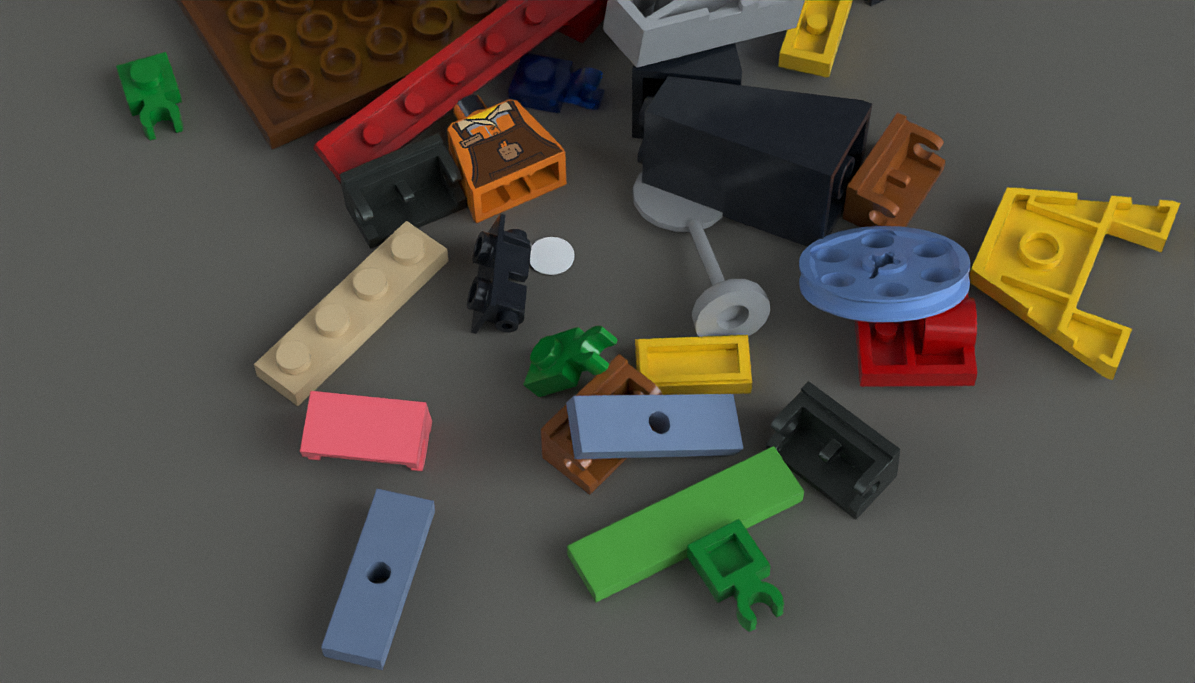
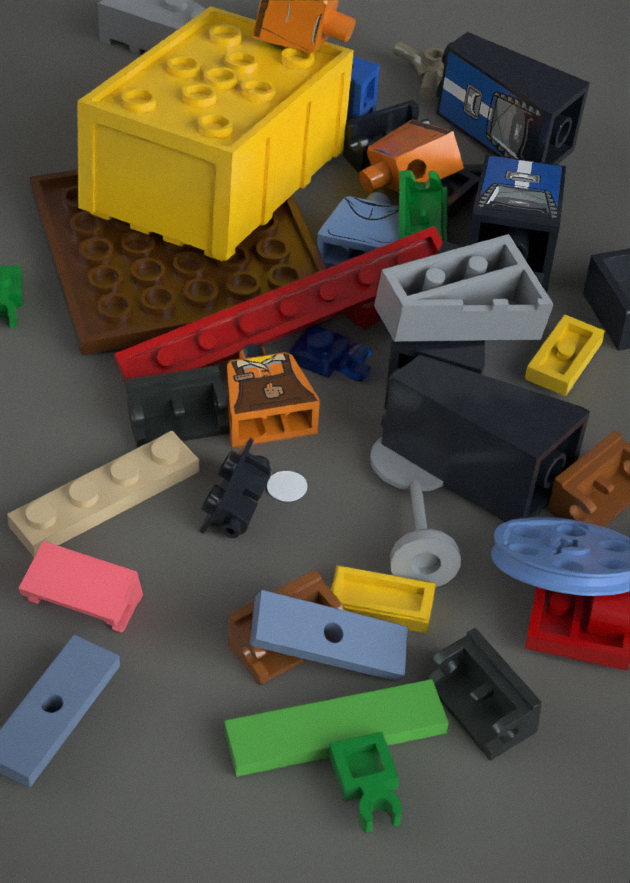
camera: 10 degrees right, 10 degrees down
(564, 356) = (267, 564): green plate -> none

